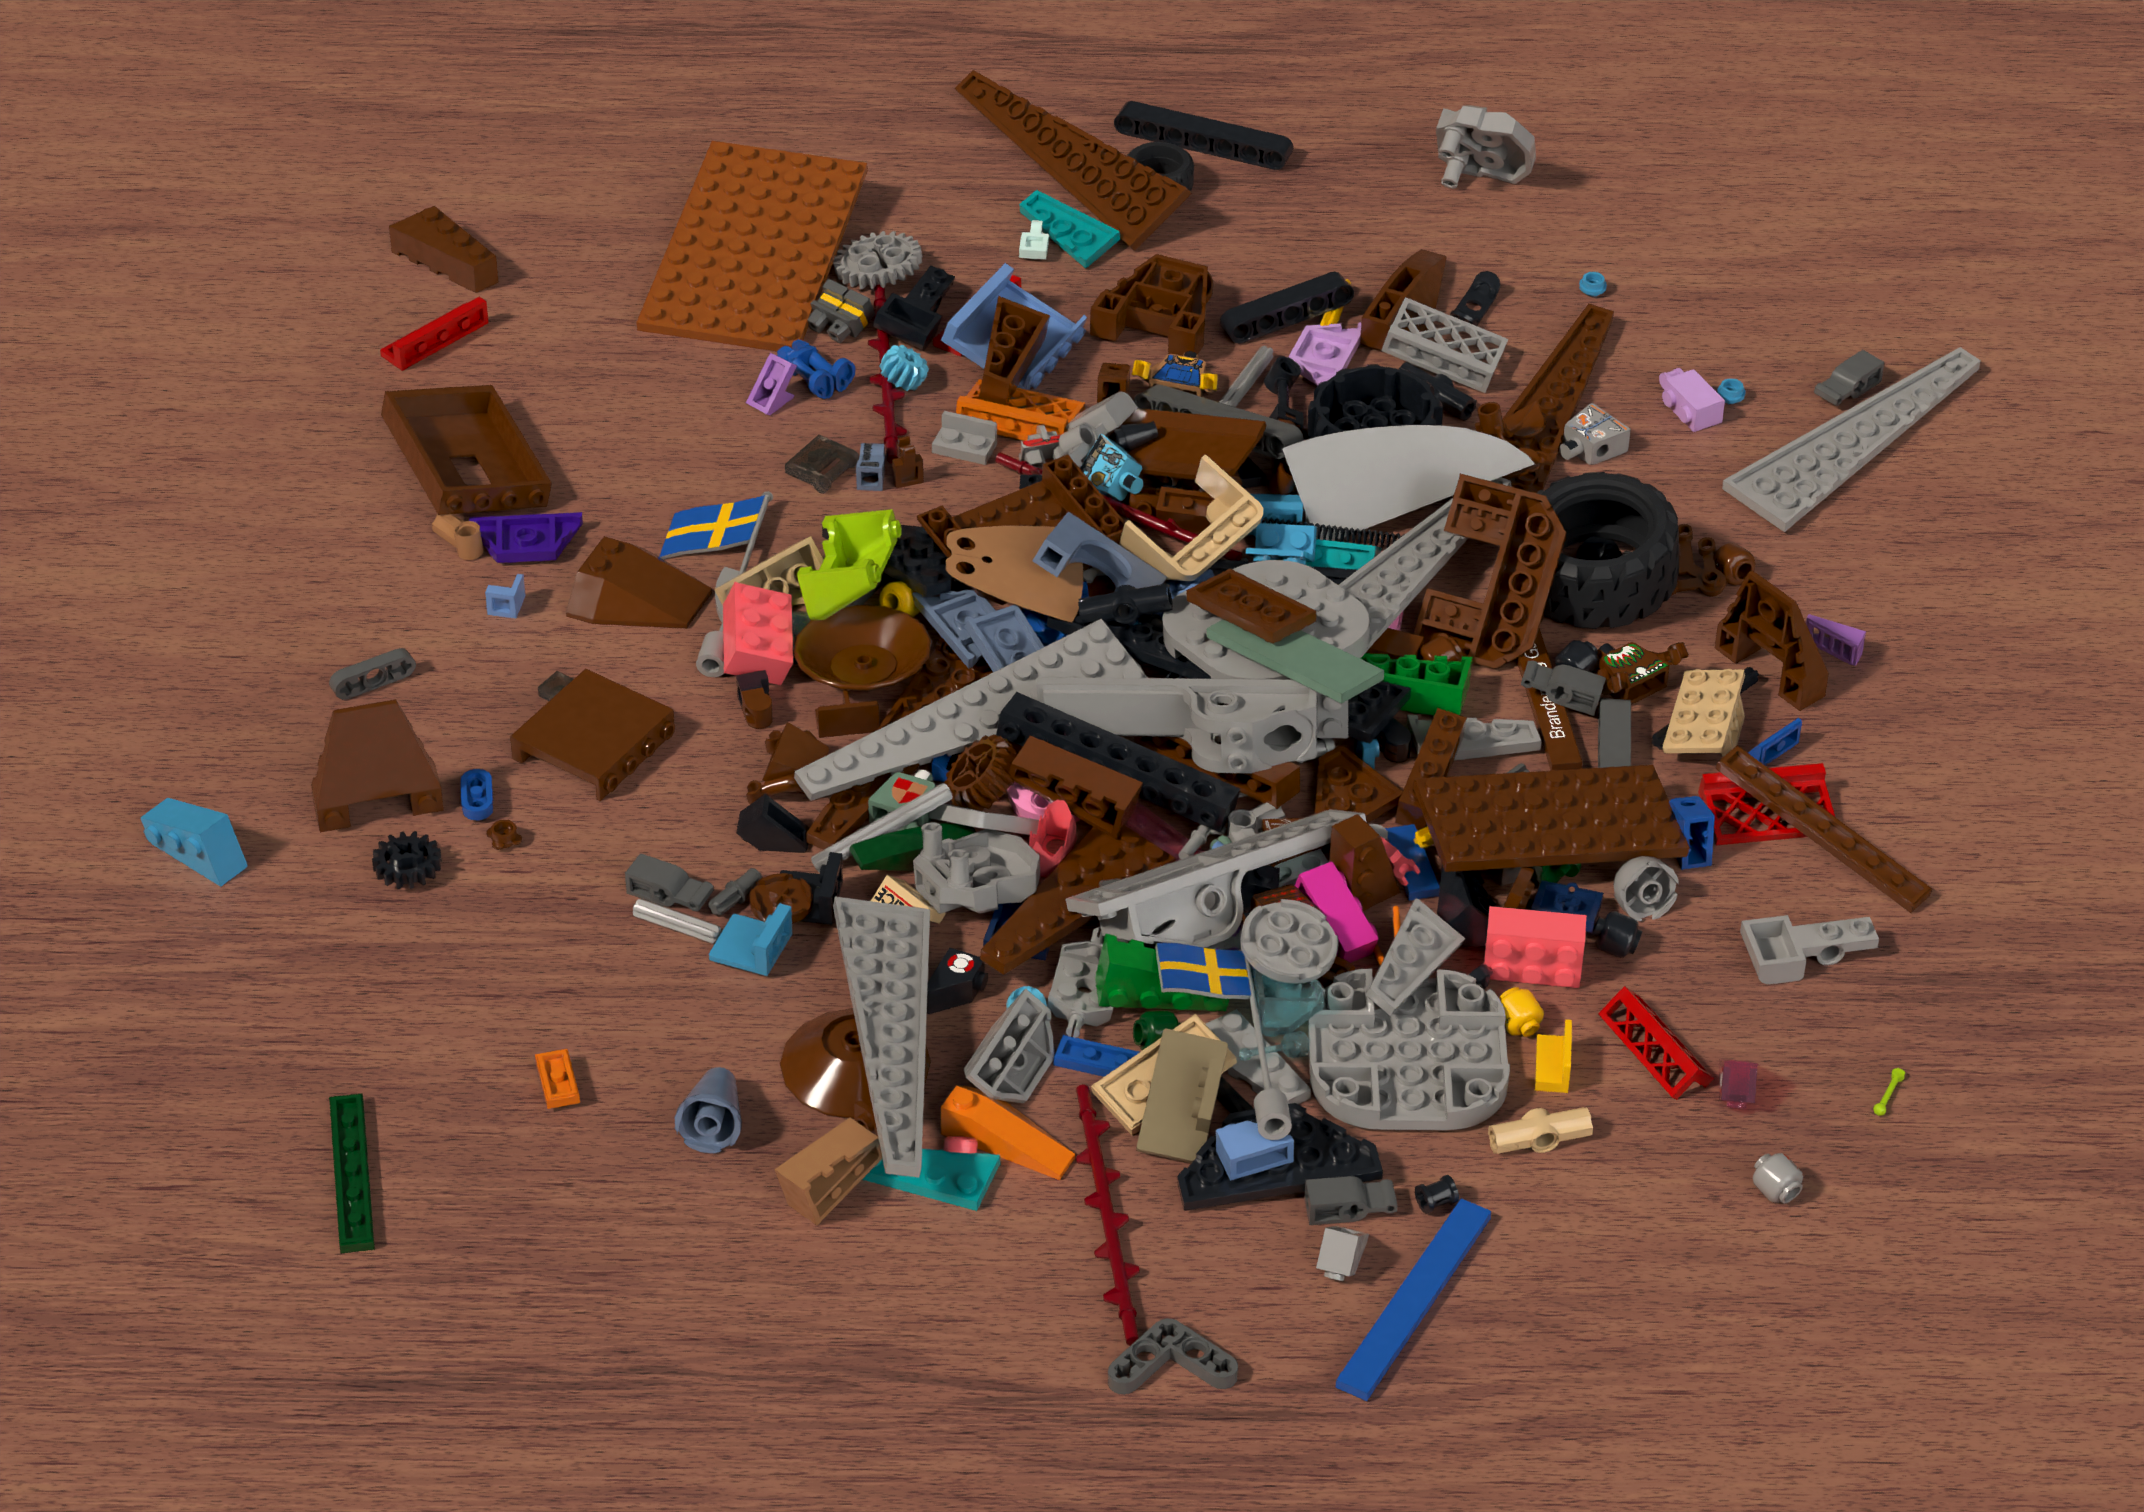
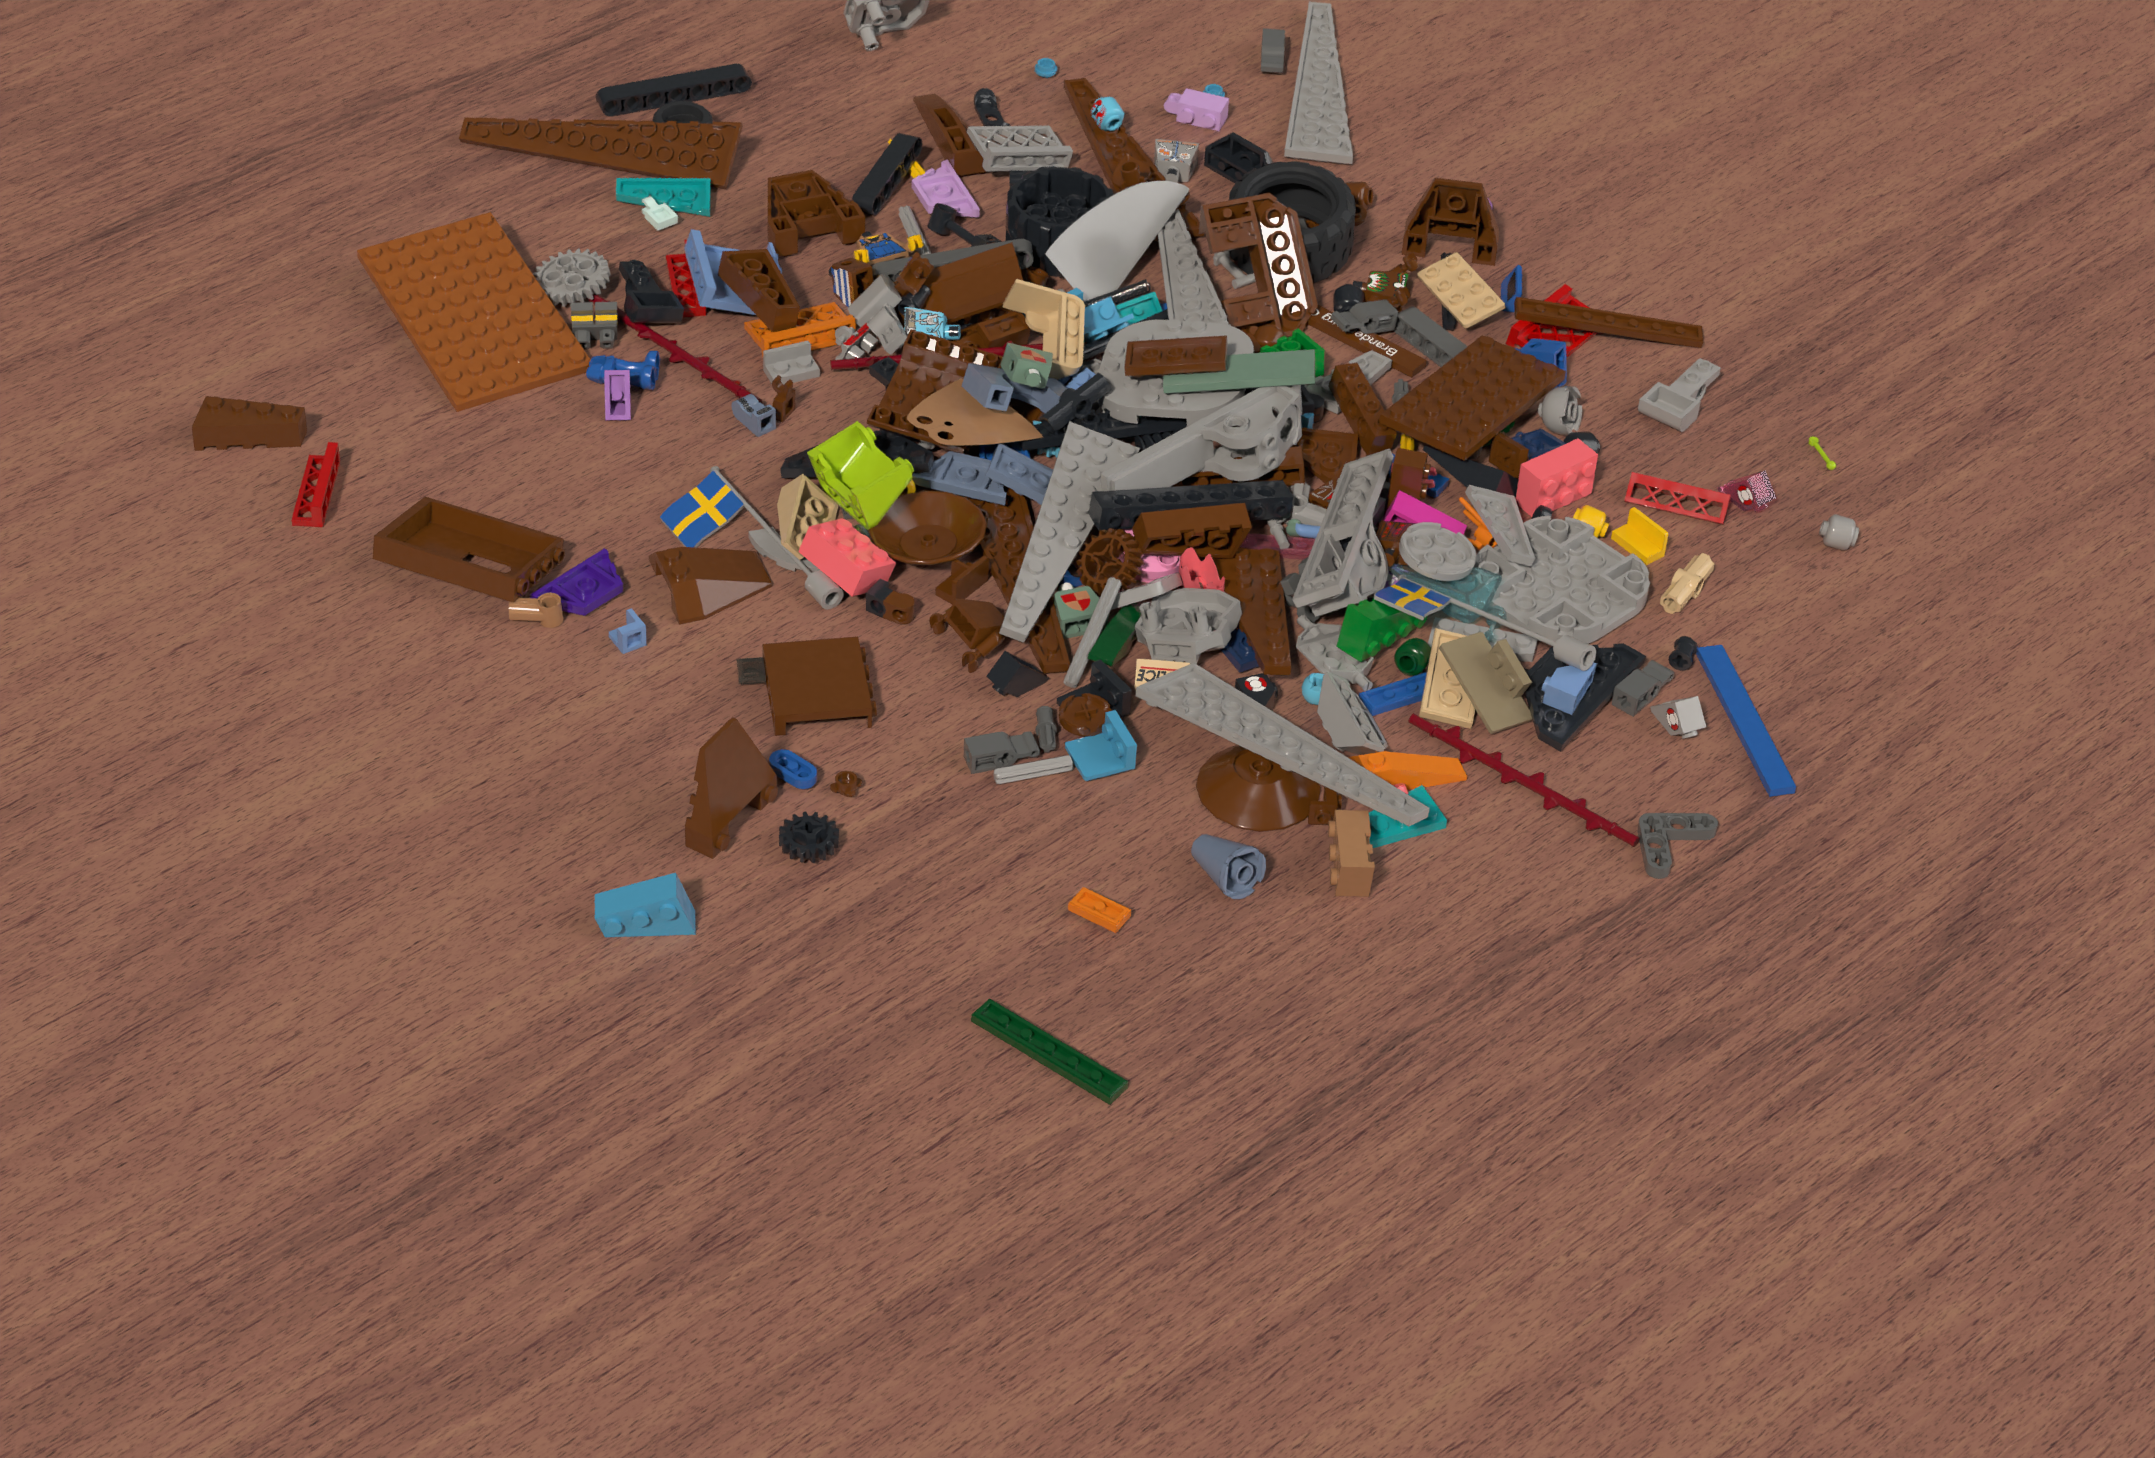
camera: 45 degrees left, 0 degrees up
(389, 660) = (608, 734): dark grey beam -> none
(816, 457) = (710, 434): clear smoke plate -> none
(904, 367) = (692, 338): medium azure gear -> none
(1125, 546) = (1029, 366): none -> sand green torso
(1150, 406) = (913, 274): none -> reddish brown hips
(1574, 354) = (1107, 113): none -> medium azure head
(1654, 465) = (1234, 157): none -> black wedge

